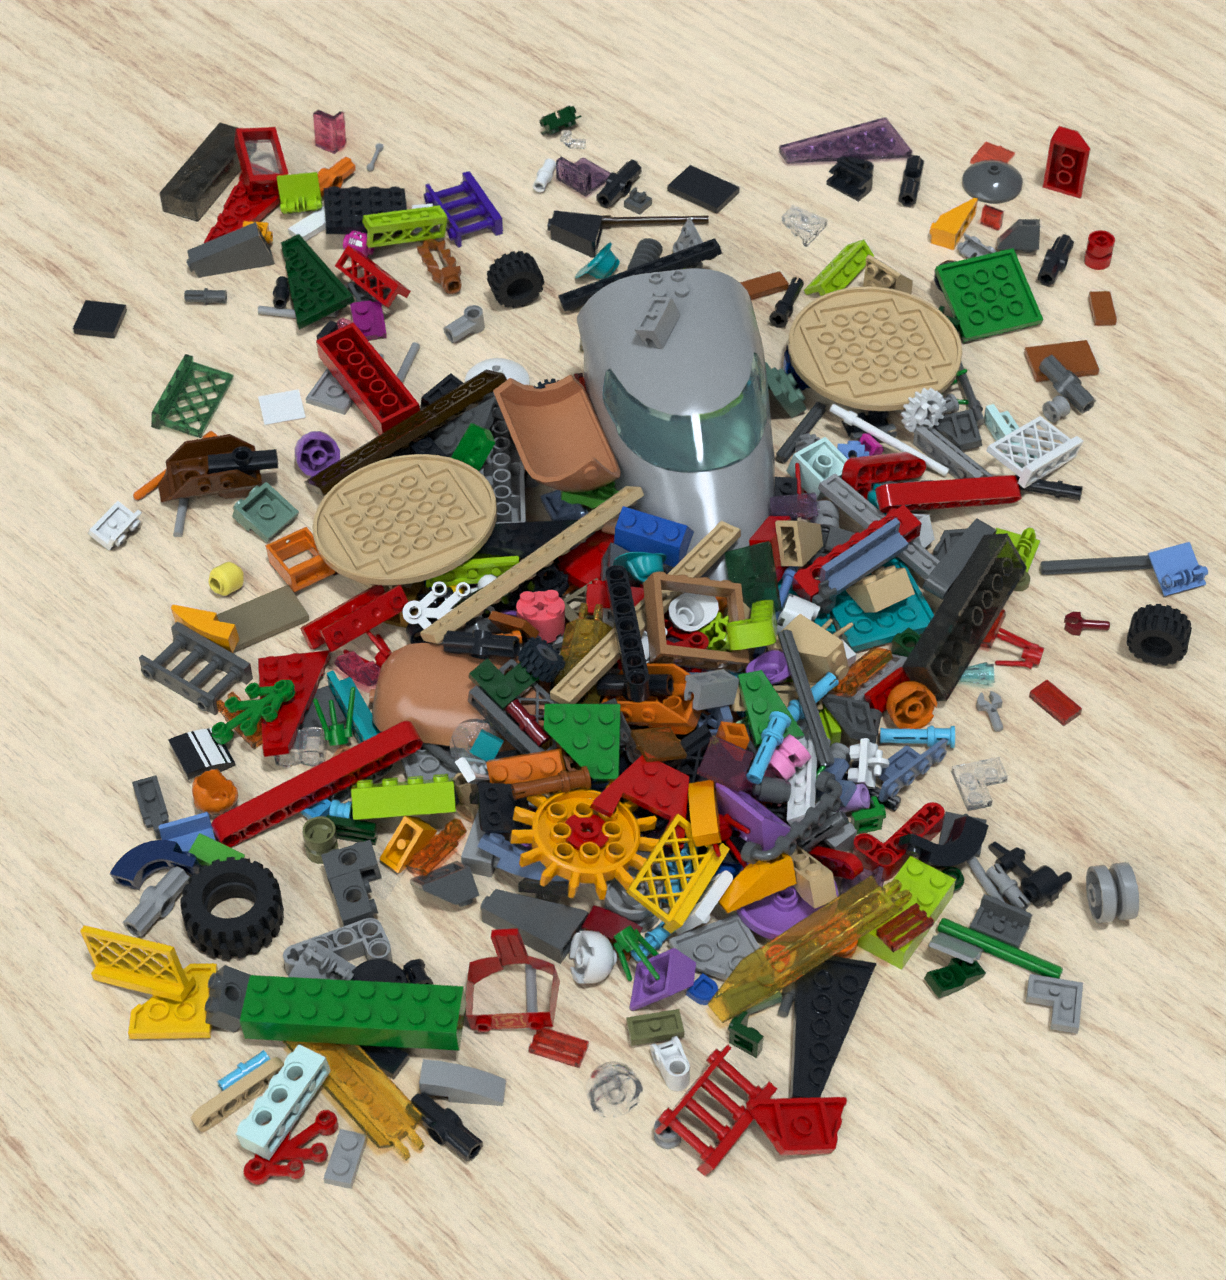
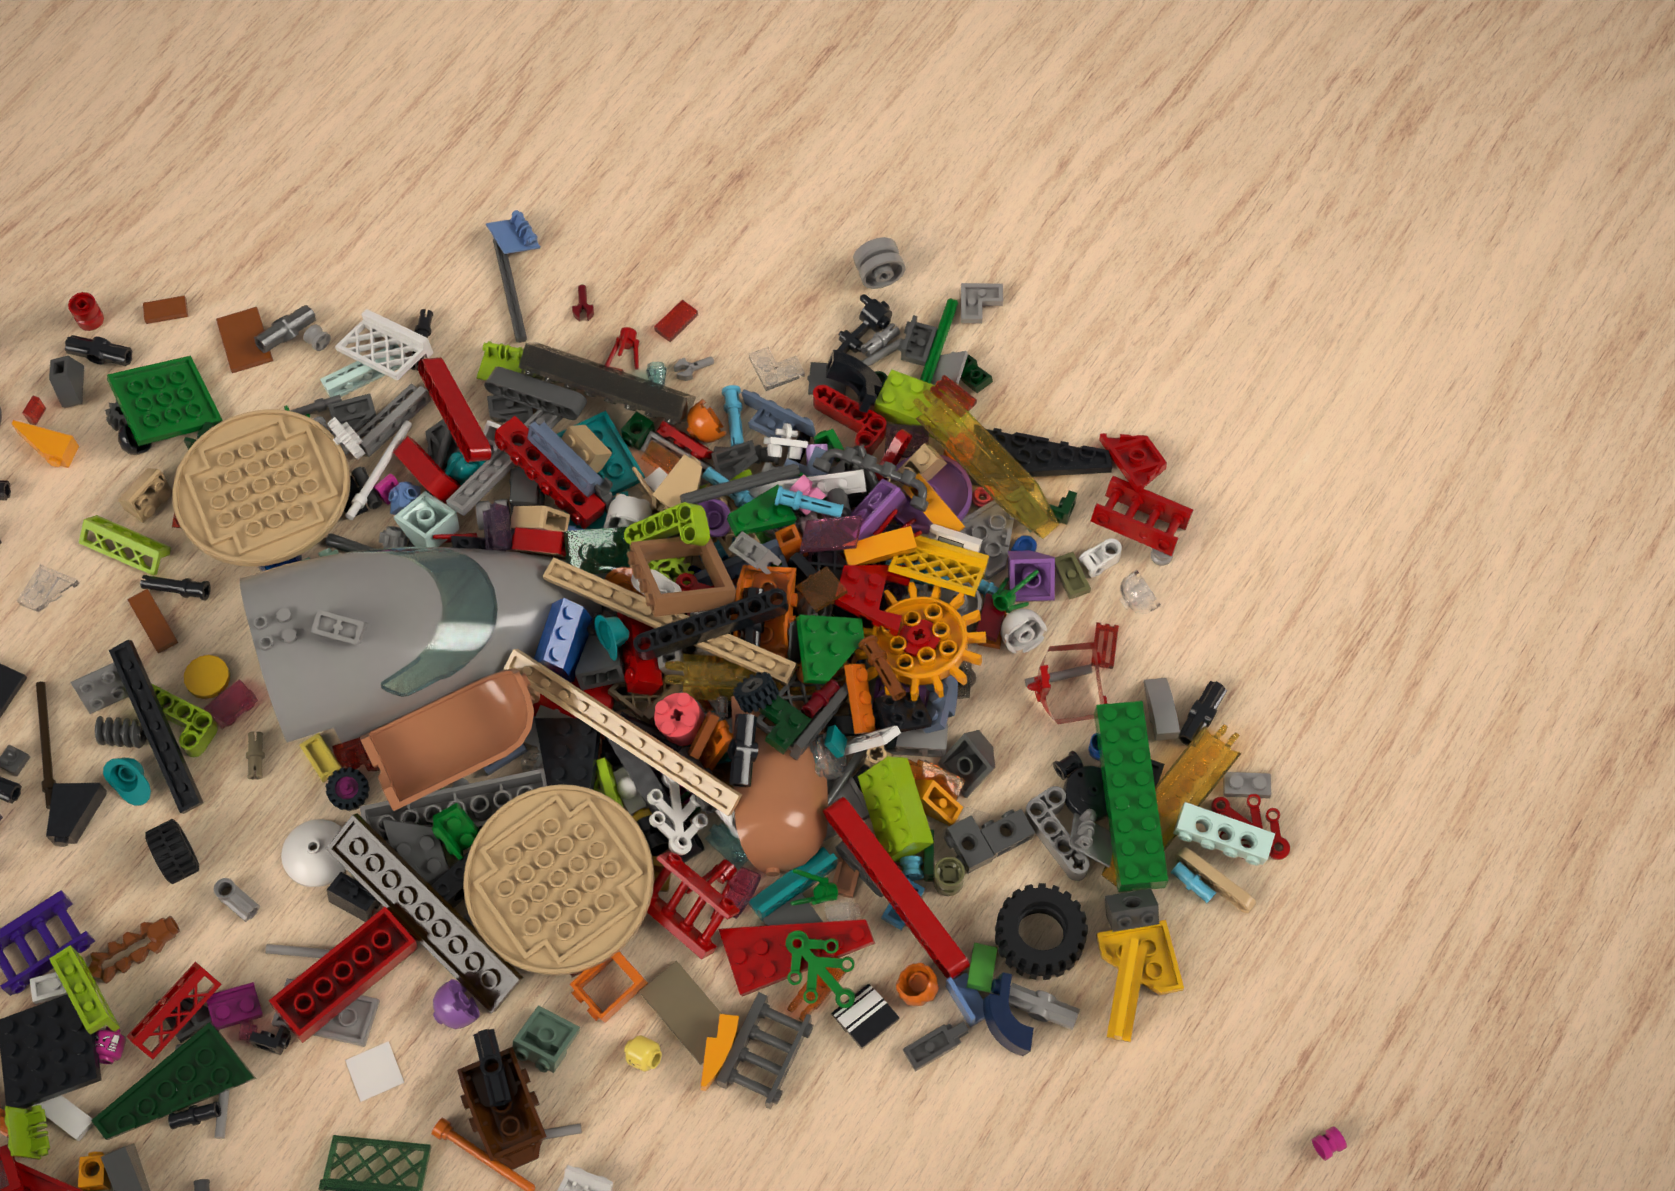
camera: 100 degrees left, 15 degrees up
(541, 923) = (994, 682): dark grey slope -> none
(973, 246) = (82, 425): light grey hinge -> none
(1159, 634) = (603, 239): black tyre -> none

